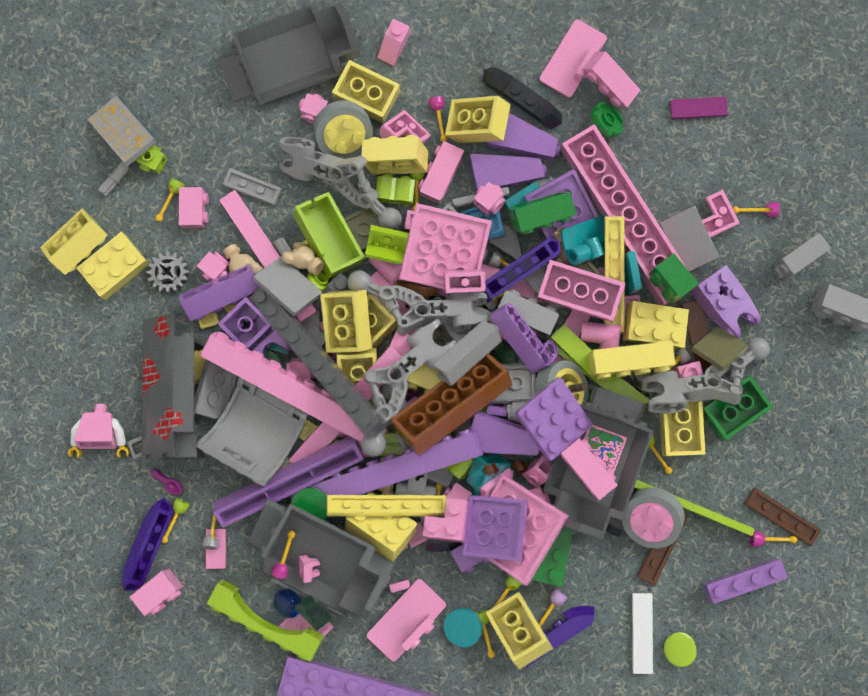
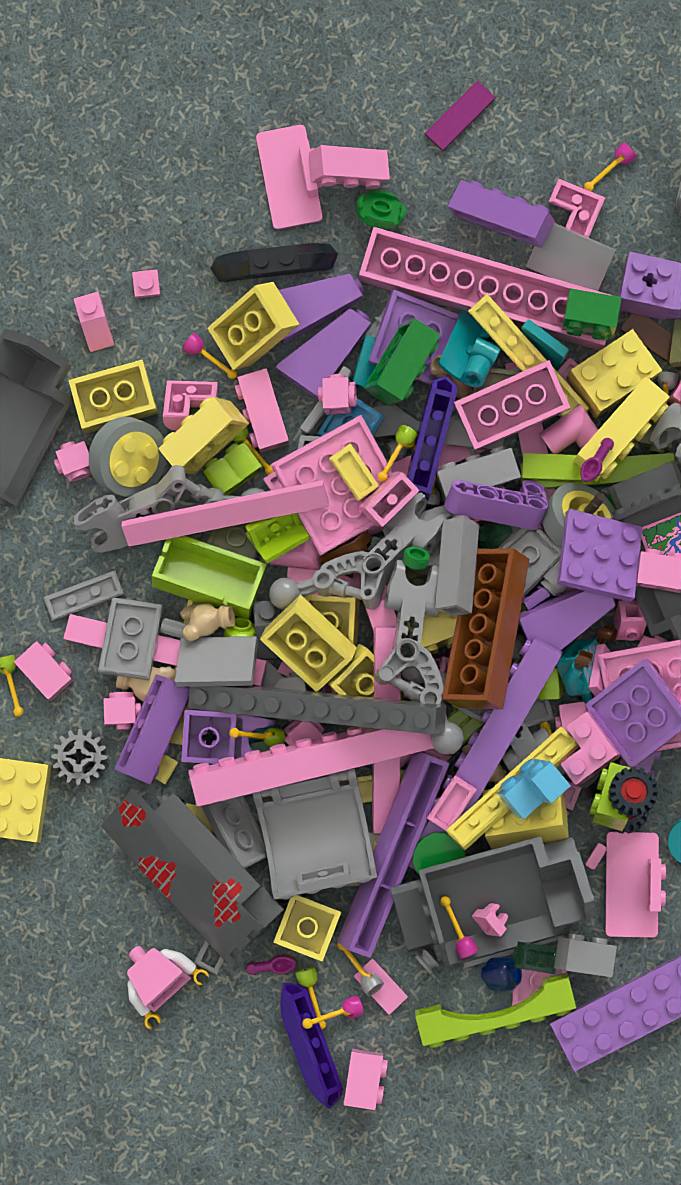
camera: 30 degrees left, 0 degrees up
(187, 545) = (350, 1008): none -> hinge
(204, 479) = (307, 927): none -> light yellow brick
(253, 558) = (427, 961): none -> light grey bush
(254, 232) = (130, 639): none -> light grey tile
(280, 355) = (268, 736): none -> hinge
(342, 636) = (584, 956): none -> light grey brick
(344, 483) = (451, 803): none -> bright pink tile
(367, 208) = (225, 513): none -> bright pink tile
(396, 515) = (535, 784): none -> medium azure brick
(441, 47) = (146, 283): none -> bright pink plate
(443, 569) = (624, 798): none -> brick
(448, 327) = (416, 557): none -> green tile
(458, 249) = (353, 472): none -> light yellow tile
(505, 256) = (404, 437): none -> hinge
(595, 365) = (593, 466): none -> magenta piece
(673, 180) = (501, 213): none -> medium lavender brick

